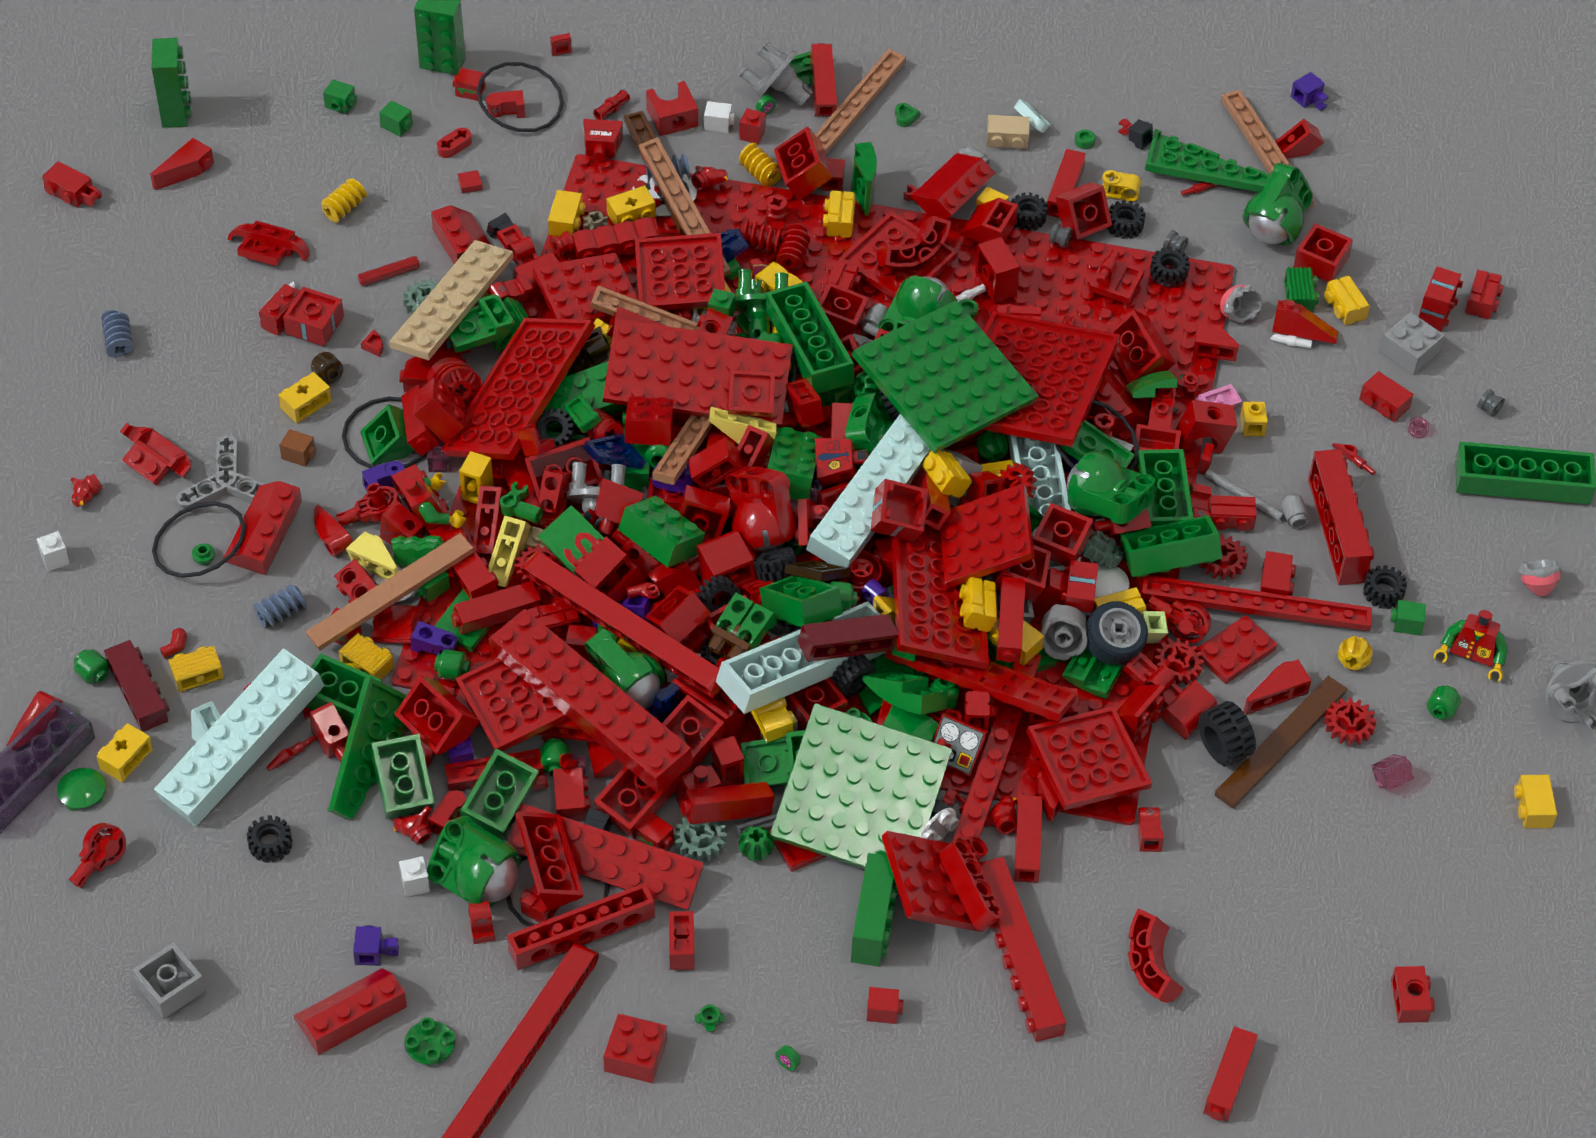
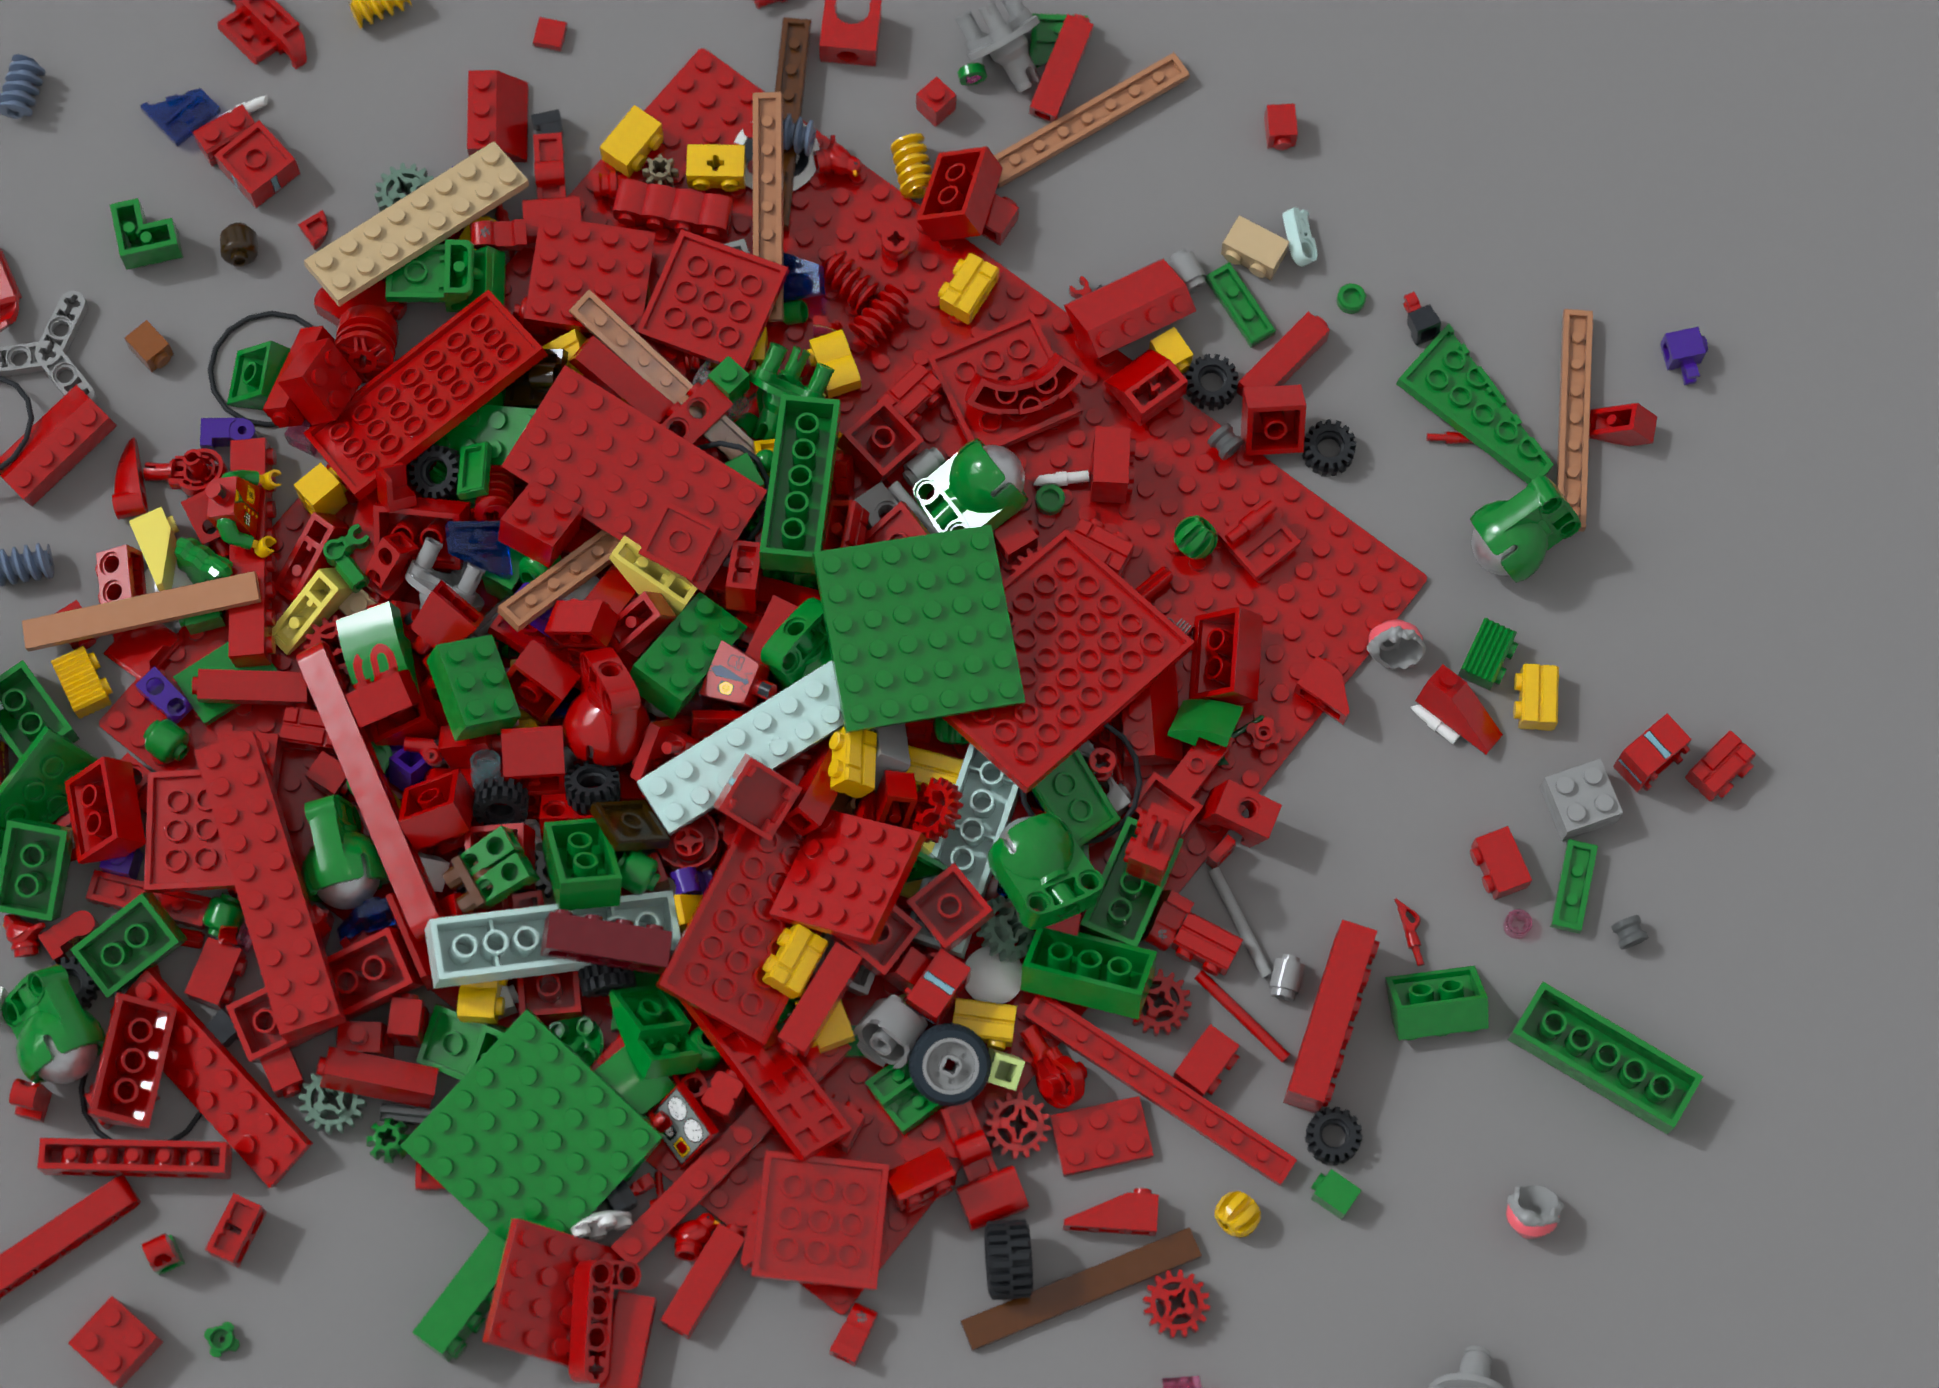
camera: 25 degrees right, 20 degrees up
(240, 312) = (182, 114): none -> clear blue wing
(256, 388) = (141, 241): none -> green brick
(305, 397) = (207, 277): yellow brick -> none
(388, 270) = (385, 128): red axle -> none
(602, 138) = (739, 41): red torso -> none
(636, 974) = (163, 1254): none -> red leg
(693, 579) = (484, 765): none -> clear light blue wheel
(718, 117) = (902, 68): white brick -> none
(864, 175) = (1026, 247): green slope -> none
(906, 114) = (1144, 162): green tile -> none
(981, 63) = (1281, 126): none -> red brick
(1018, 167) = (1240, 304): none -> green tile
(1076, 290) = (1195, 537): none -> green piece
(1122, 186) = (1353, 396): yellow piece -> none
(1170, 448) = (1156, 840): none -> red brick
(1173, 258) = (1342, 533): black tyre -> none
(1175, 241) = (1370, 513): dark grey wheel -> none
(1222, 395) = (1285, 774): bright pink plate -> none
(1253, 418) = (1314, 819): yellow brick -> none
(1281, 546) = (1242, 1016): none -> red bar
(1323, 252) = (1547, 615): red brick -> none
(1400, 487) = (1437, 1003): none -> green slope
(1439, 392) = (1574, 886): none -> green plate
(1443, 702) = (1304, 1332): green head -> none
(1477, 640) = (1395, 1269): torso -> none

